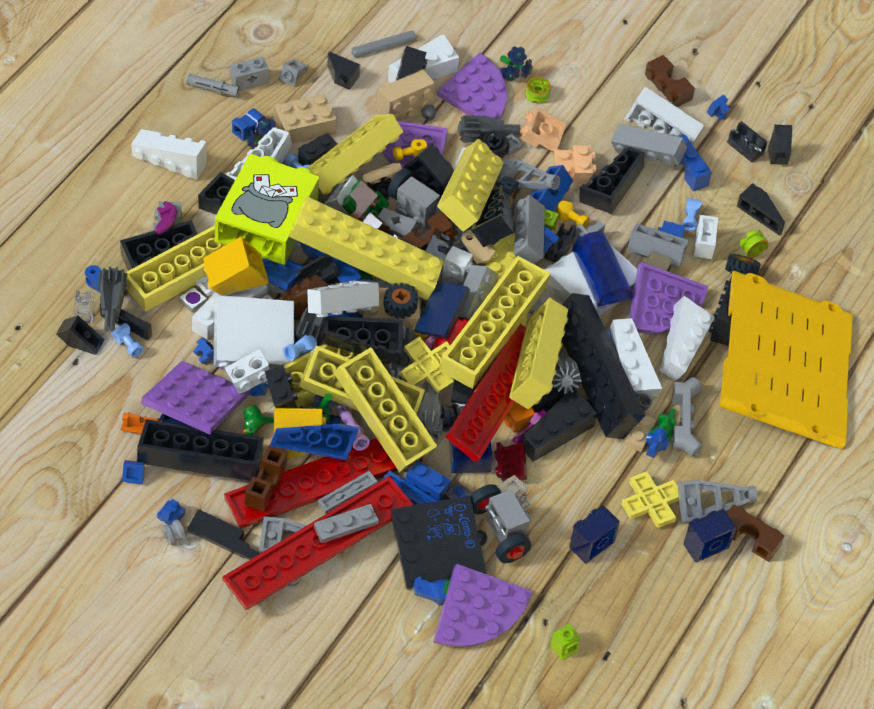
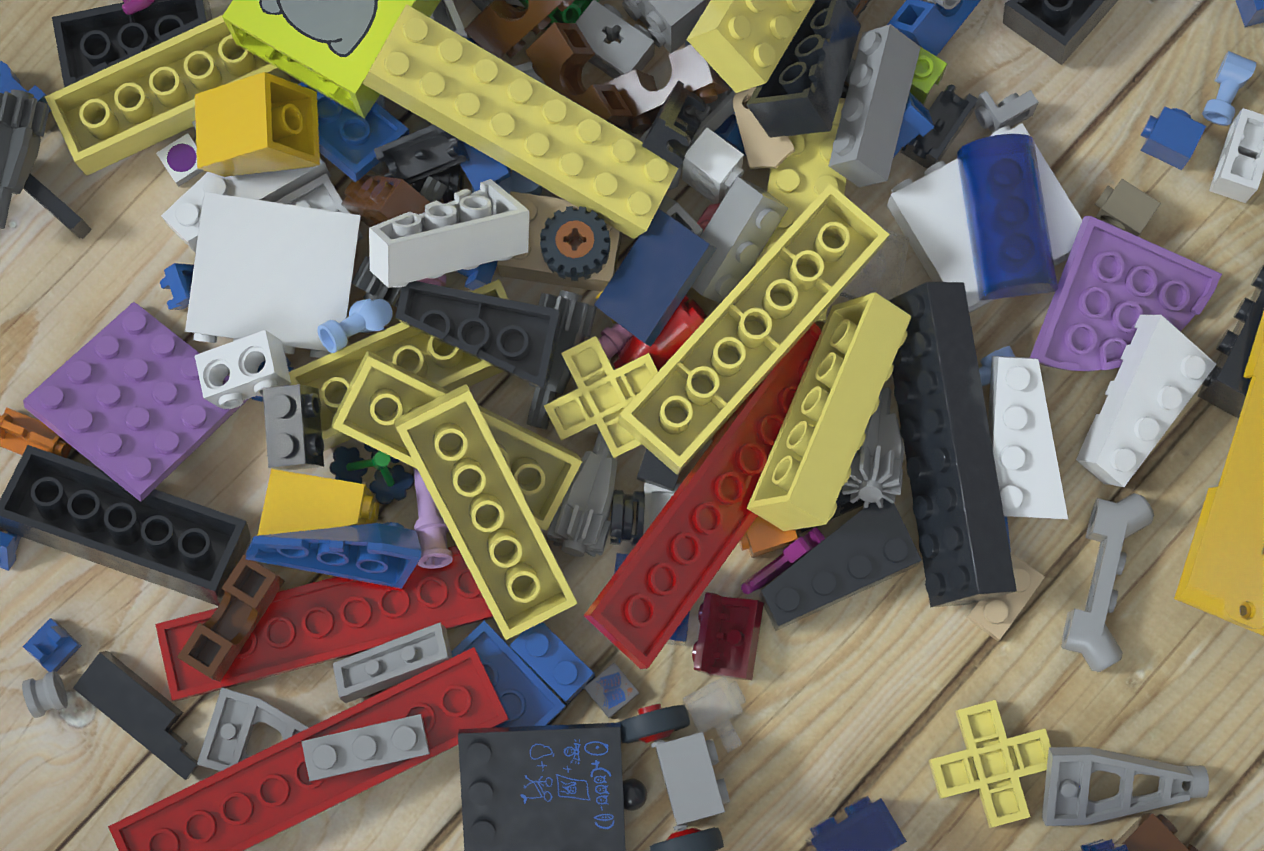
camera: 20 degrees right, 25 degrees up
(122, 335) = (31, 227): light blue leg -> none
(254, 420) = (244, 464): green animal -> none
(566, 213) = (967, 51): yellow leg -> none
(646, 401) = (1031, 535): dark grey hinge -> none
(647, 239) = (1130, 153): light grey brick -> none
(661, 434) = (1044, 614): animal -> none

